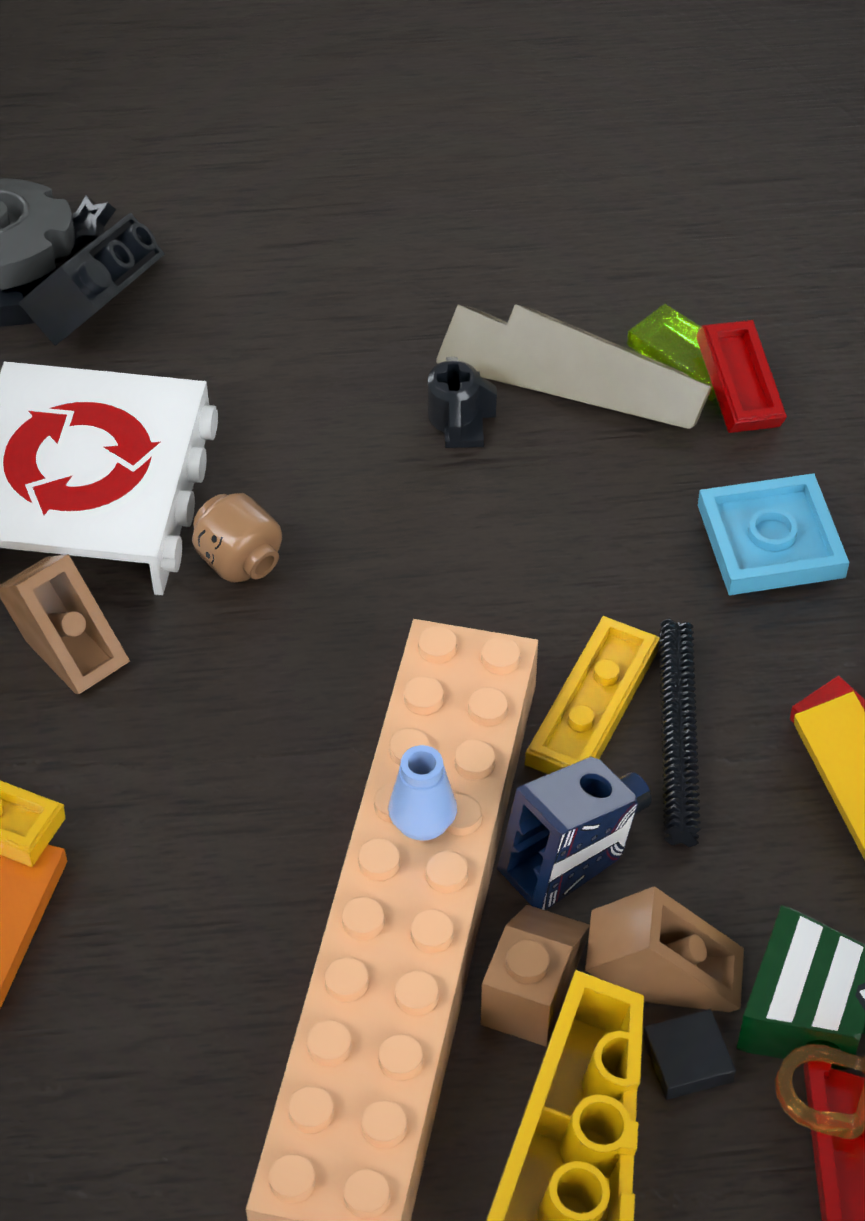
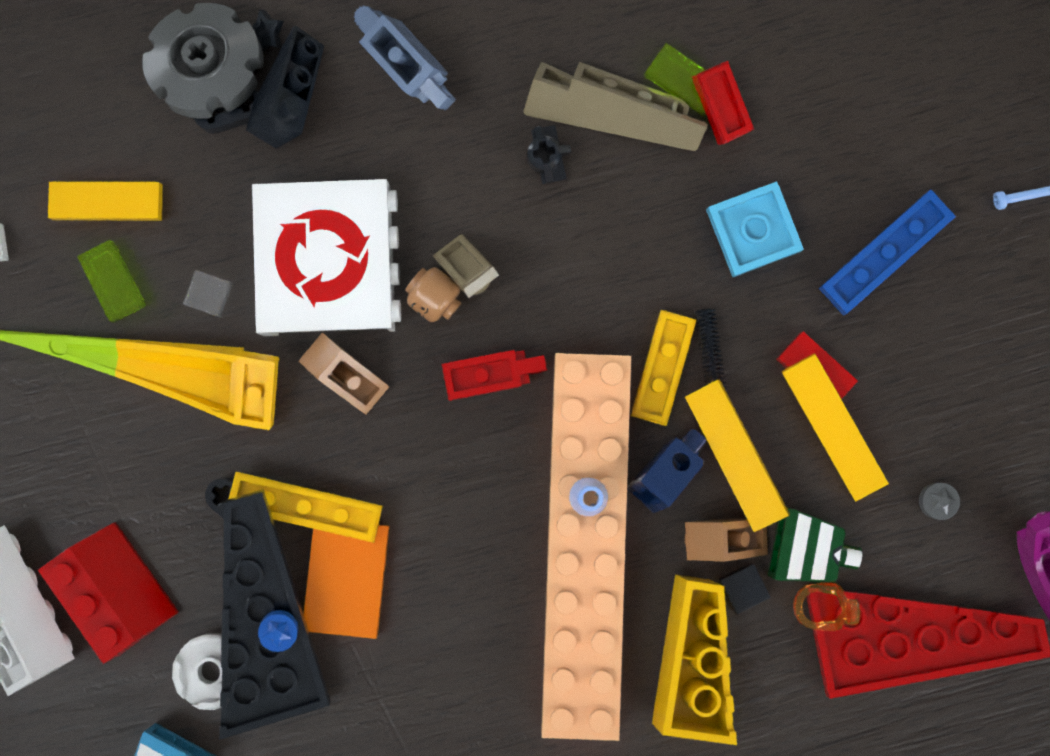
camera: 10 degrees left, 35 degrees up
(275, 261) = (403, 57): none -> sand blue hinge
(304, 514) = (466, 266): none -> dark tan tile
(304, 658) = (490, 373): none -> red hinge
(532, 973) = (659, 555): medium nougat slope -> none
(701, 821) = (737, 456): none -> yellow tile

